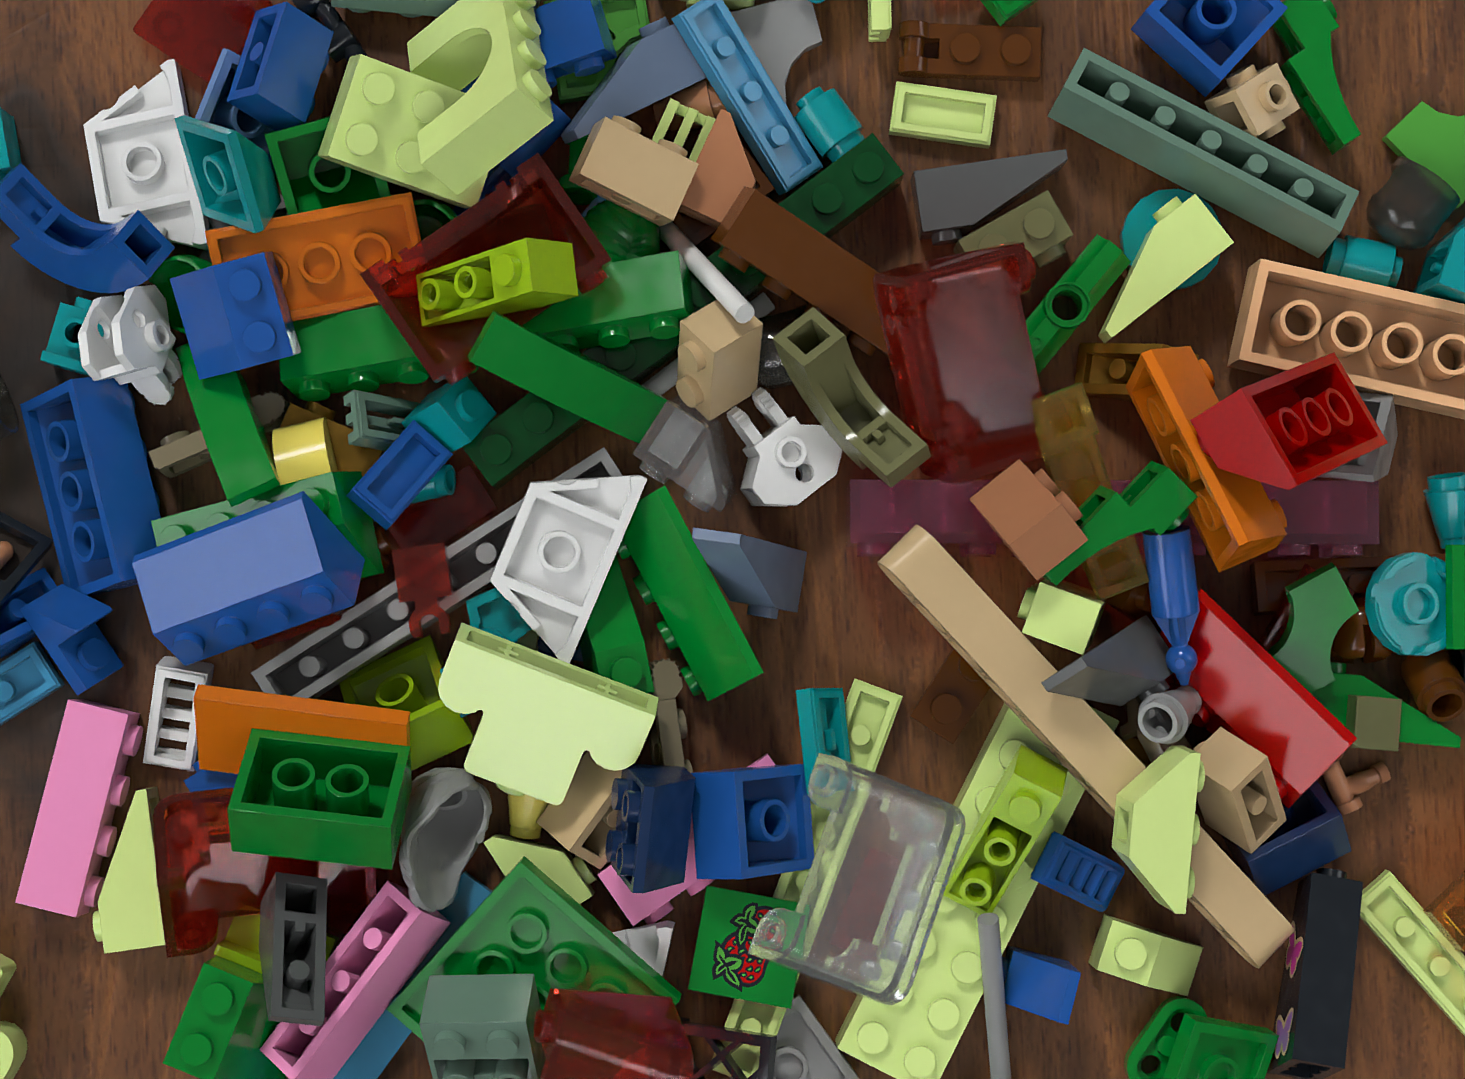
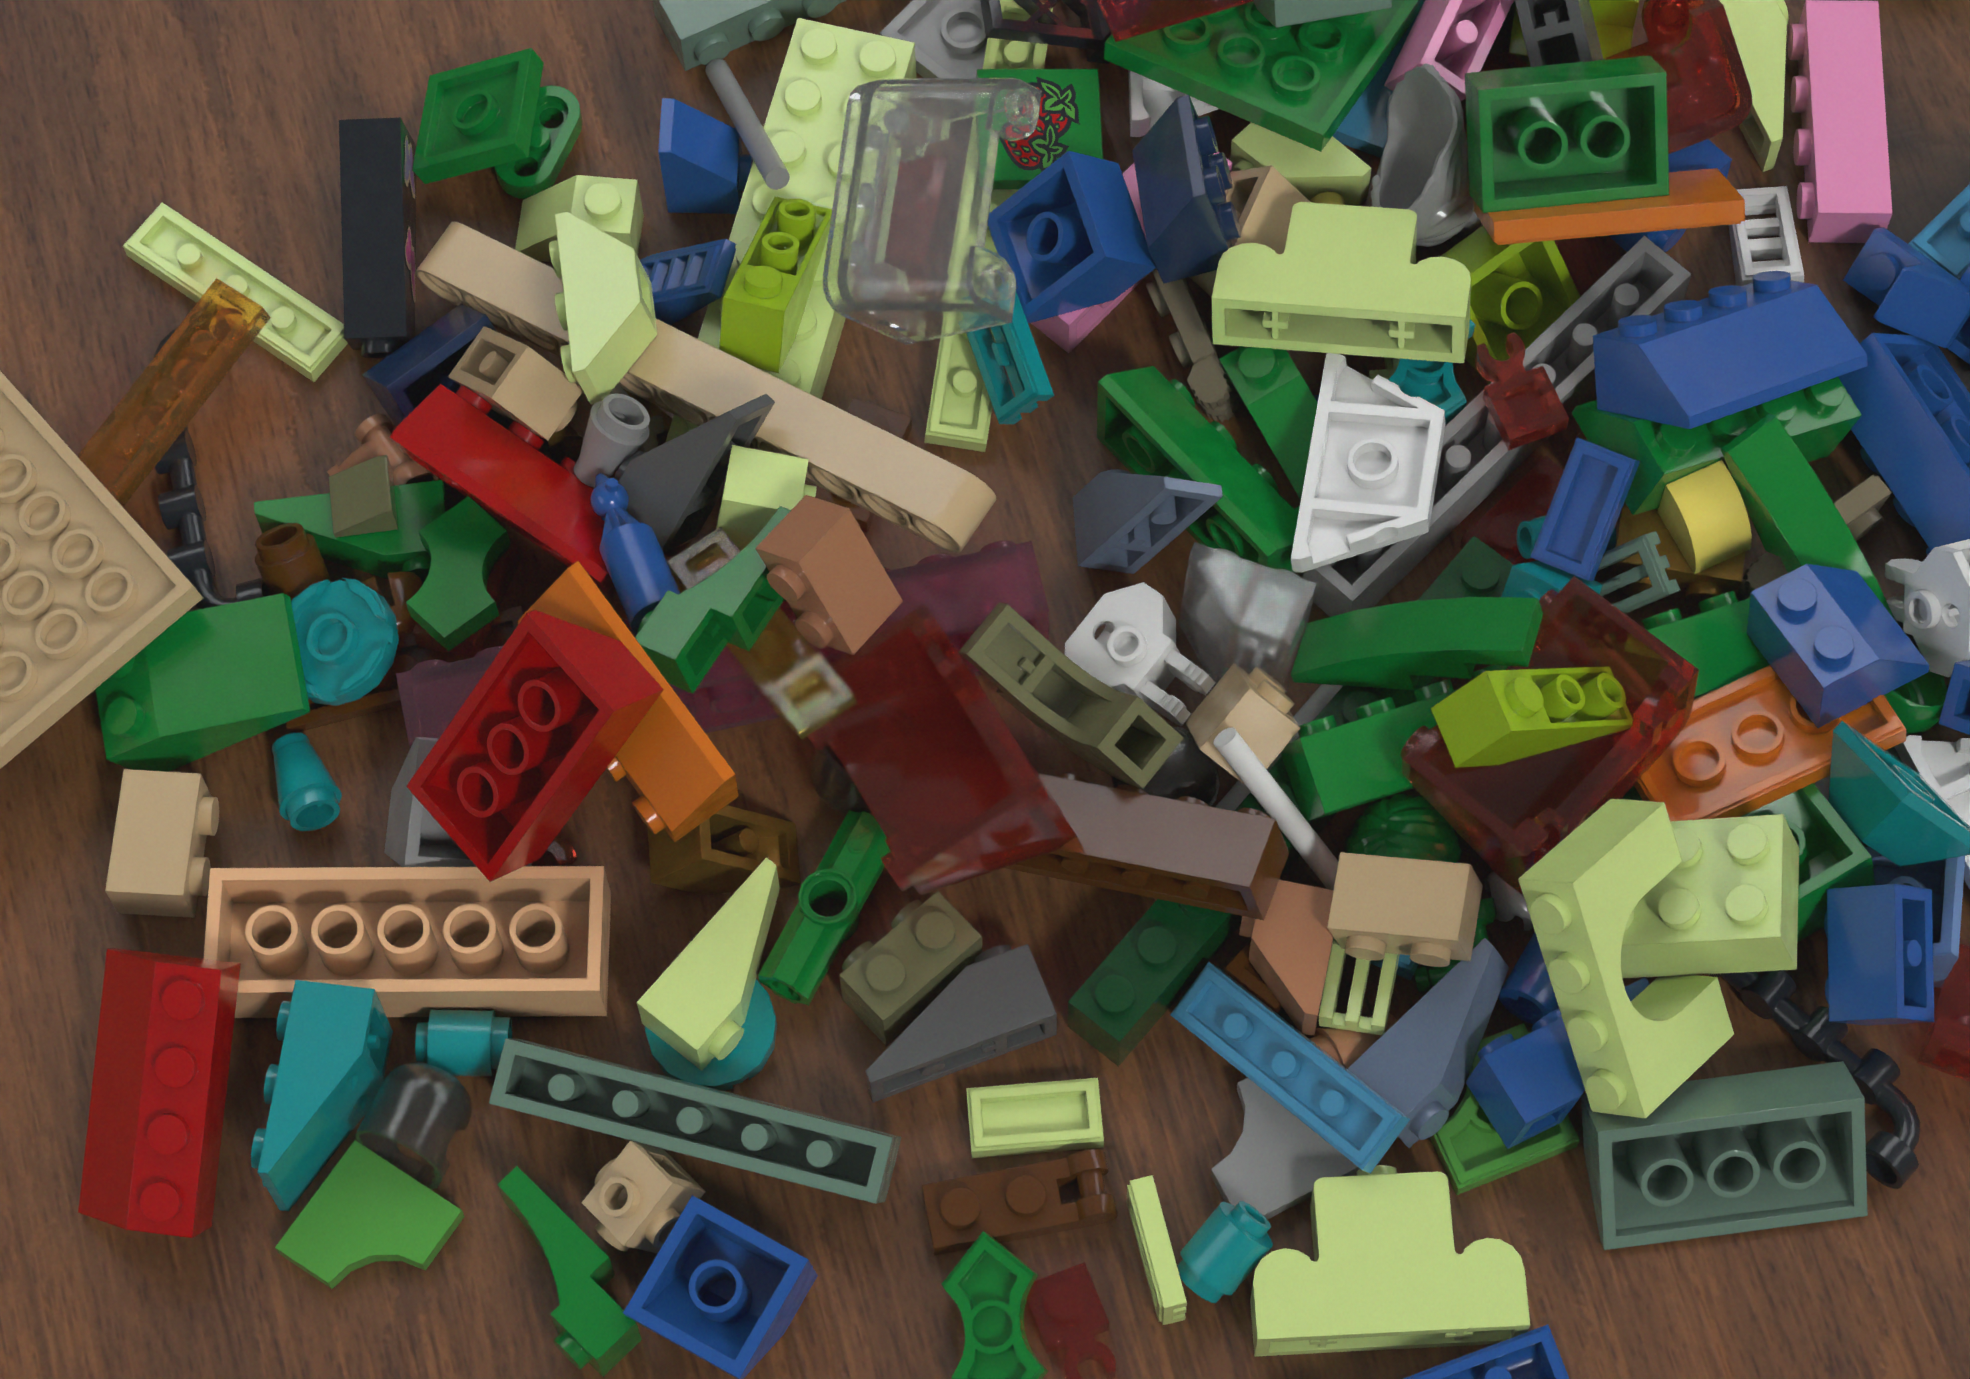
camera: 170 degrees right, 20 degrees down
(828, 123) = (1175, 1063): teal brick -> none

